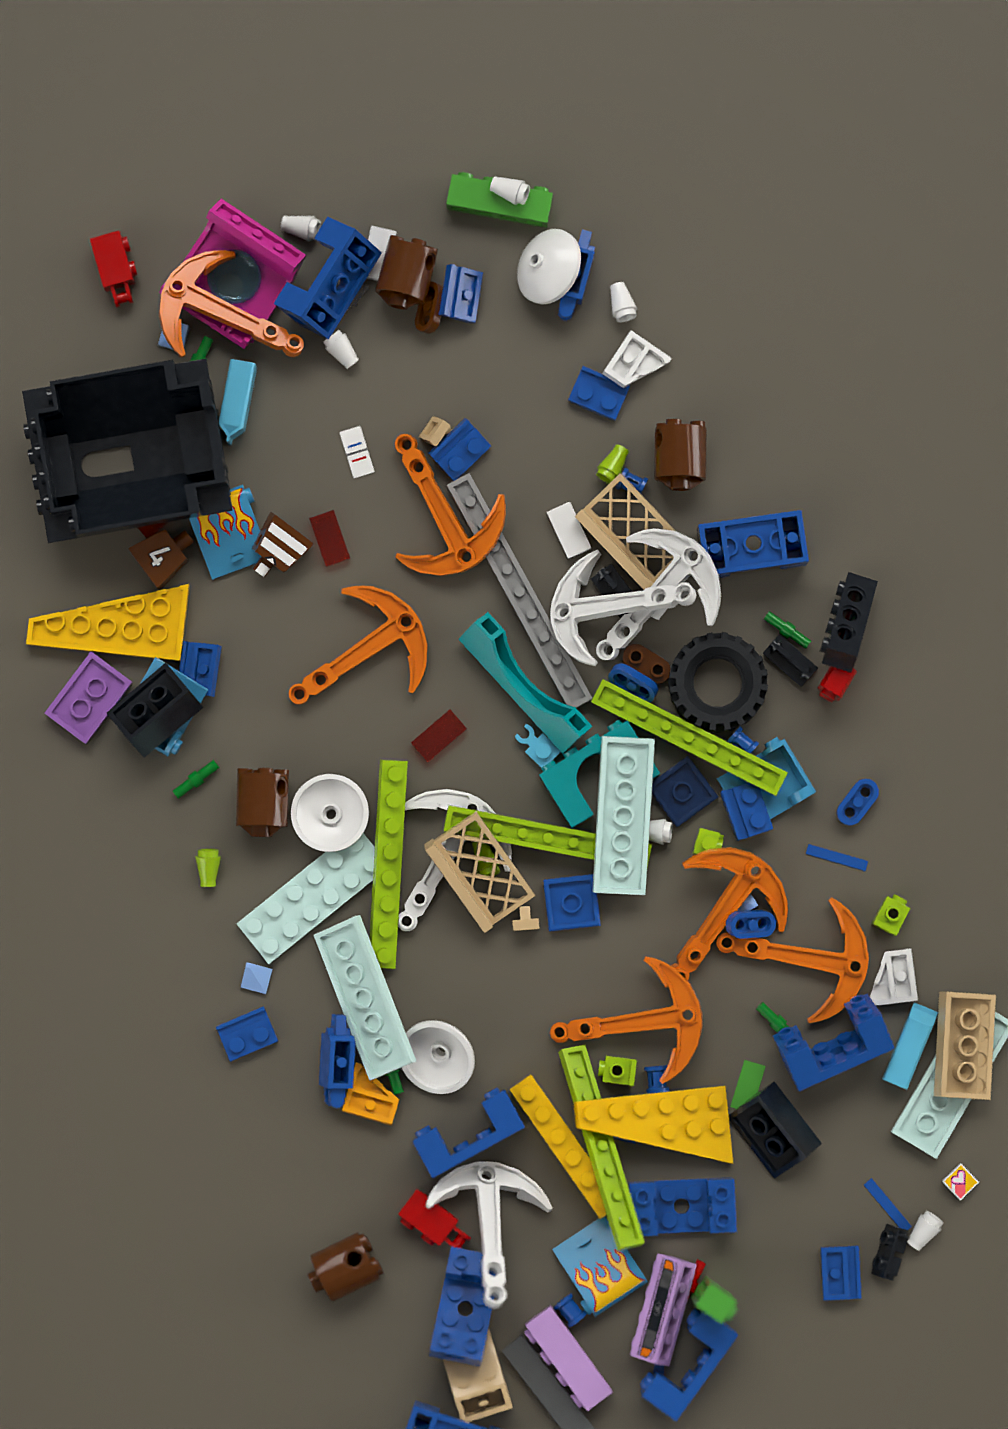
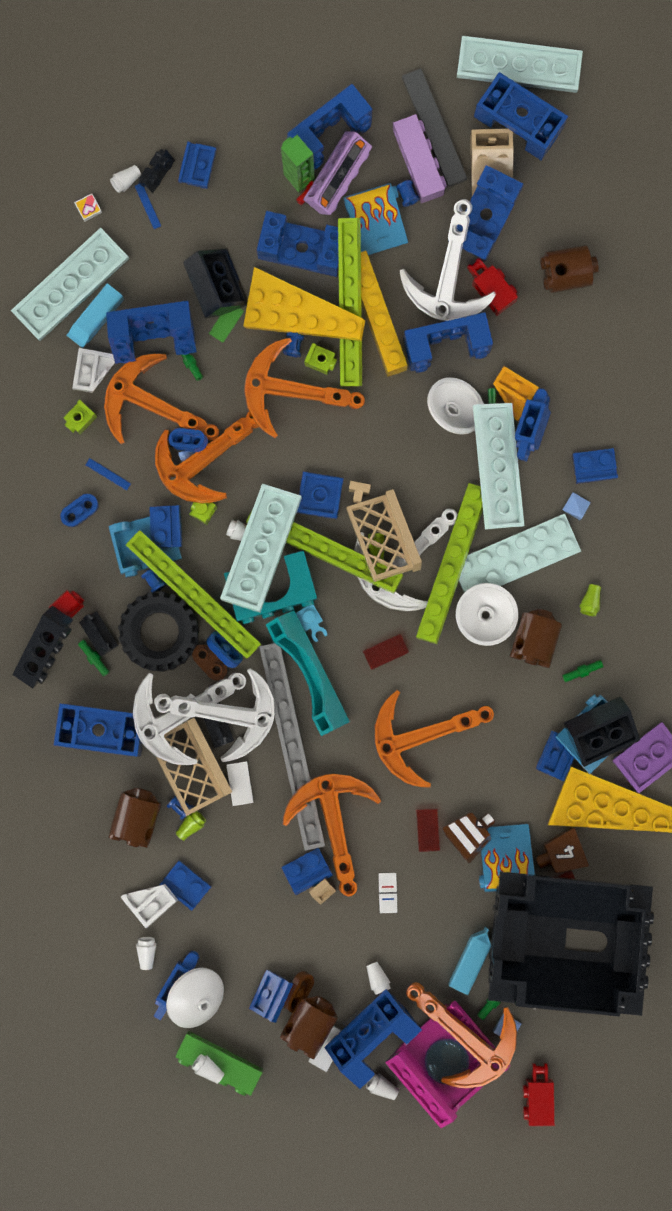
camera: 165 degrees left, 0 degrees up
(682, 791) = (210, 556): dark blue tile -> none
(964, 1045) = (53, 303): tan slope -> none

